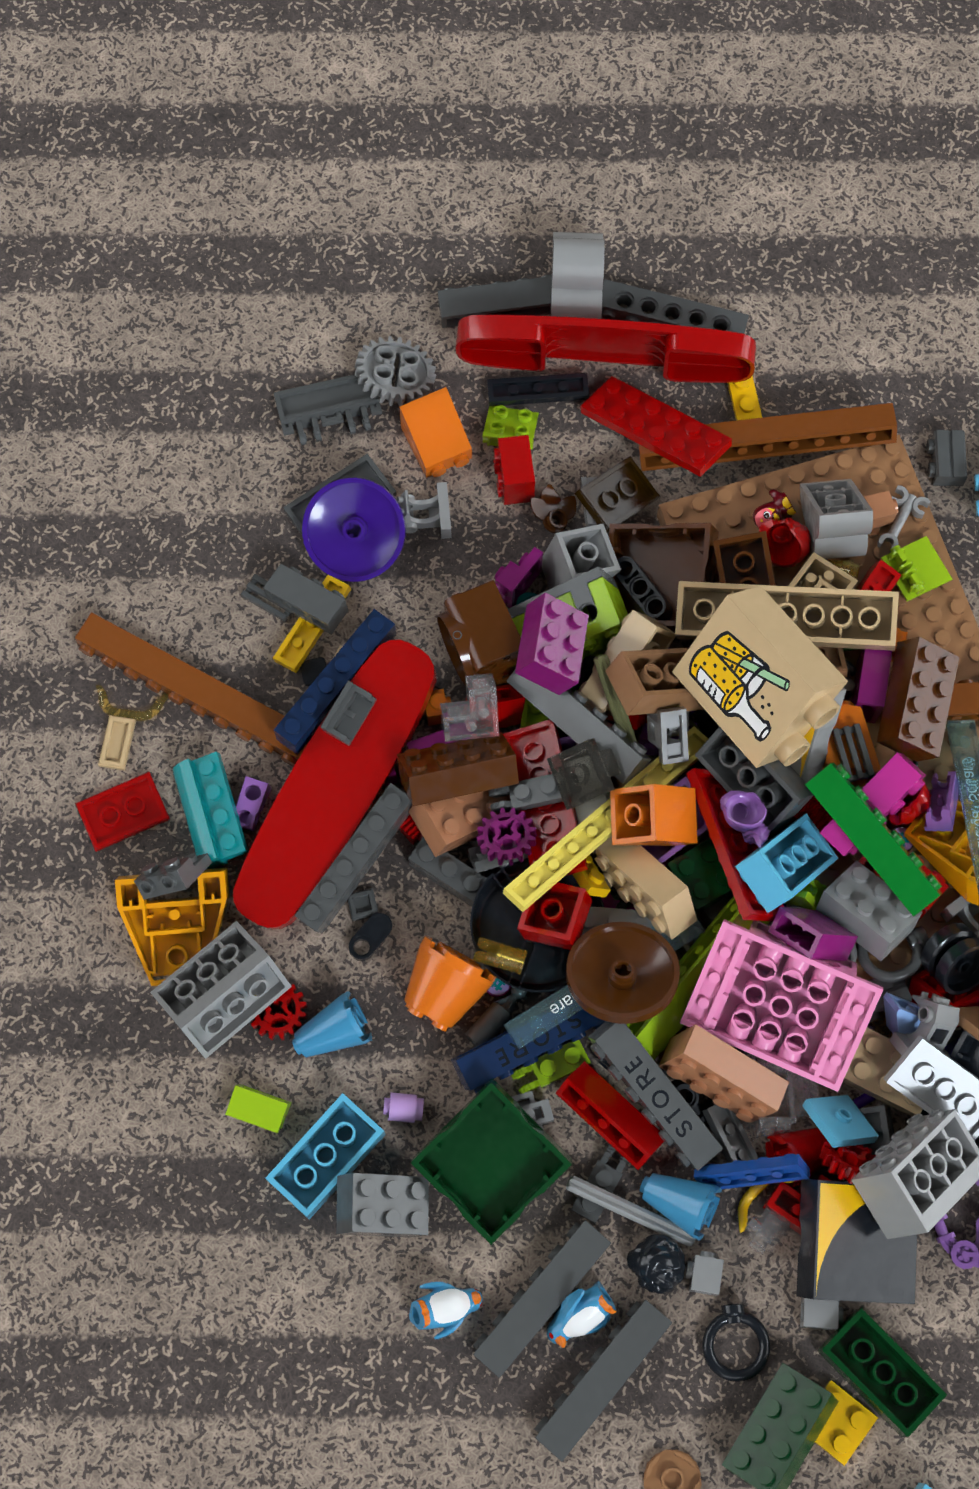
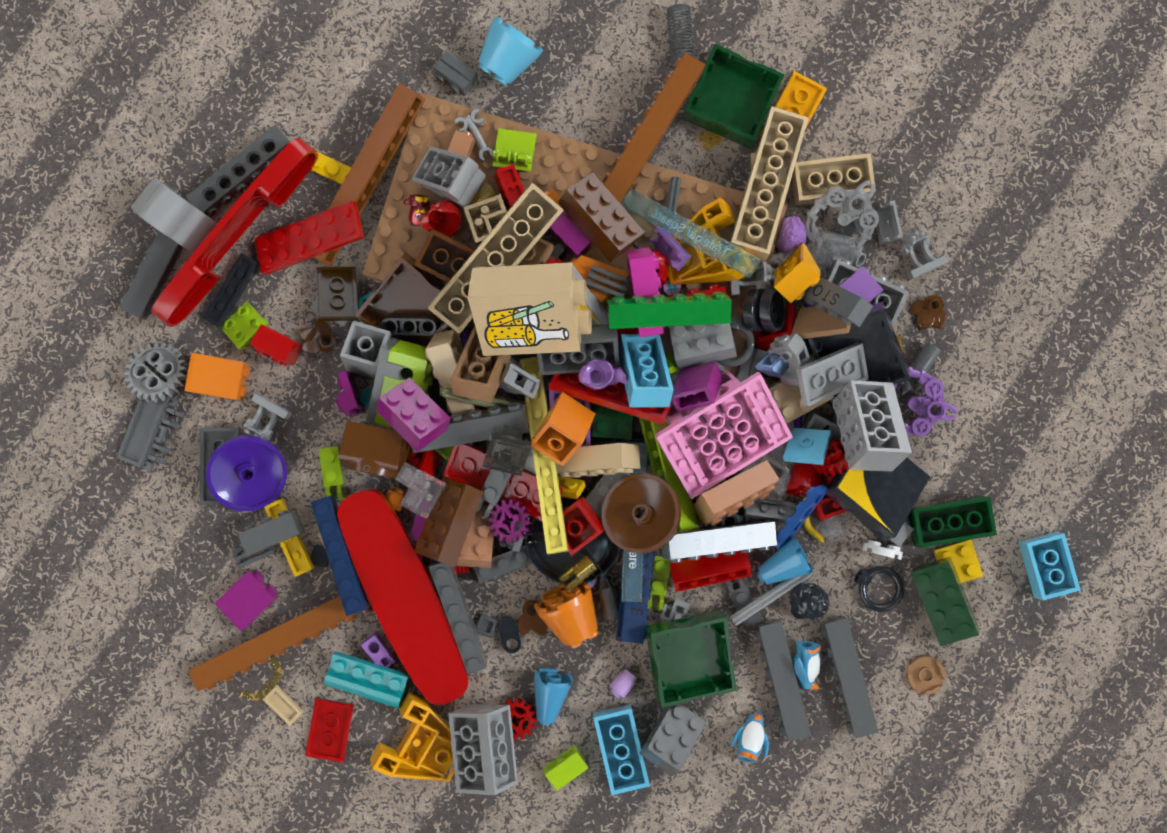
camera: 50 degrees left, 15 degrees up
(171, 875) = (394, 733): dark grey plate -> none
(212, 625) = (247, 599): none -> magenta brick
(348, 713) = (368, 564): dark grey hinge -> none
(403, 952) = (531, 620): none -> reddish brown plate
(420, 617) = (331, 471): none -> lime hinge
(705, 1273) = (832, 579): light grey brick -> none
(788, 1316) = (890, 551): none -> white plate

